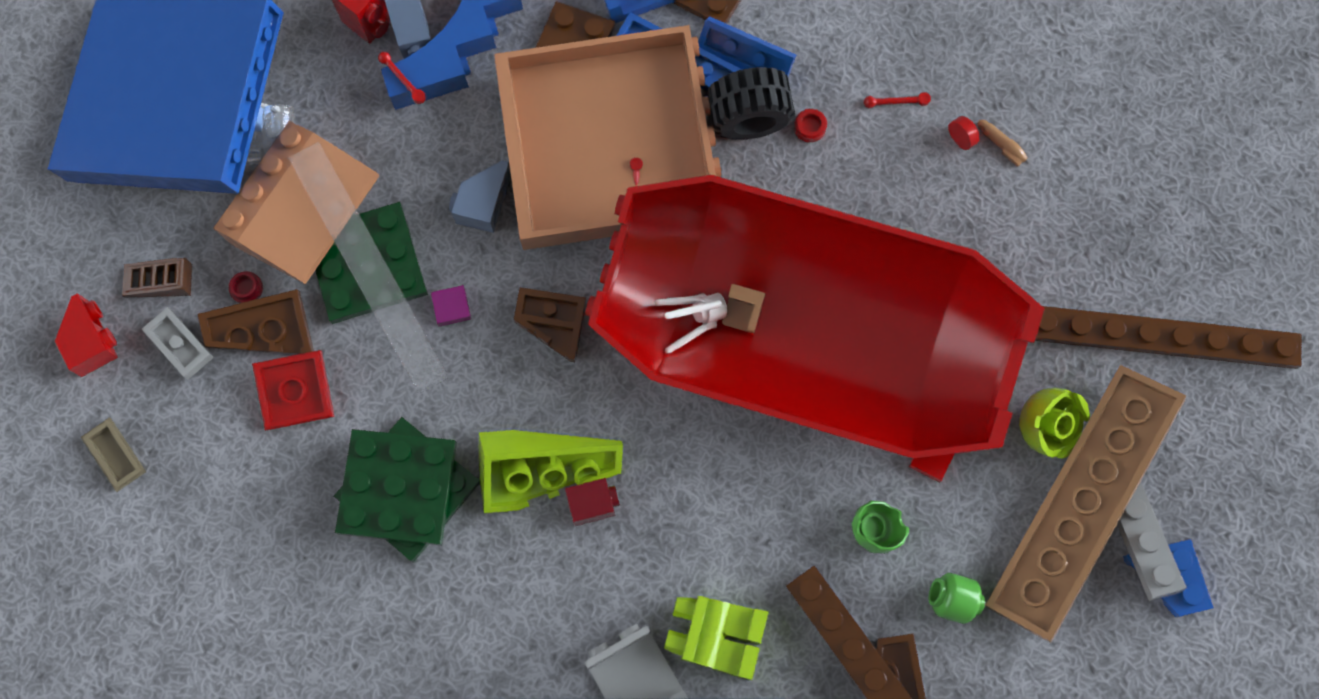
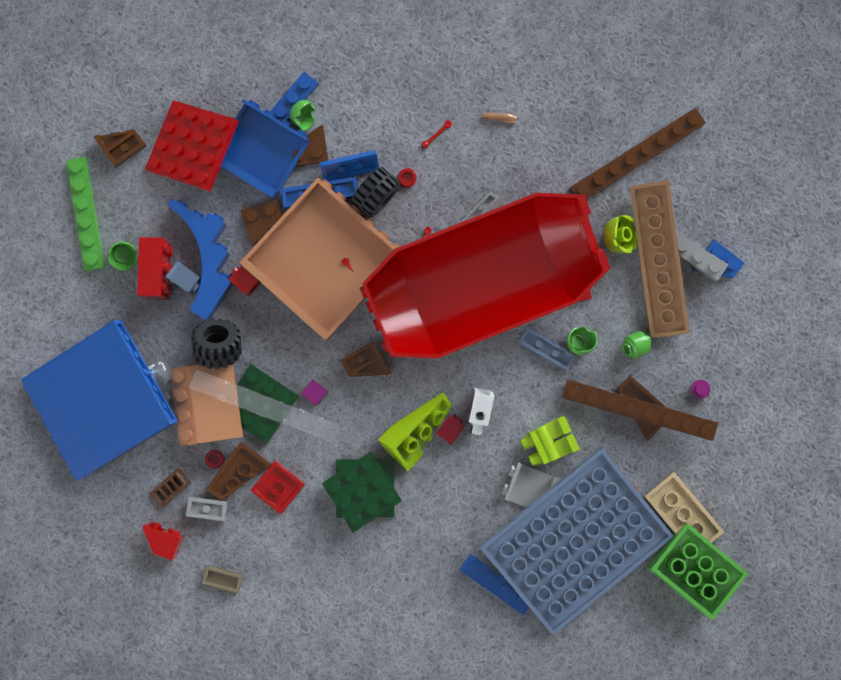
camera: 45 degrees left, 10 degrees up
(376, 134) = (216, 343): none -> black tyre
(417, 95) = (219, 309): red hinge -> none
(481, 198) = (287, 333): sand blue slope -> none
(483, 89) = (244, 280): none -> red brick
(666, 497) = (481, 402): none -> white torso
(704, 309) = (432, 305): white plant -> none
(743, 308) = (447, 290): medium nougat panel -> none
(820, 502) = (547, 349): none -> sand blue tile
(963, 132) = (479, 127): red tile -> none

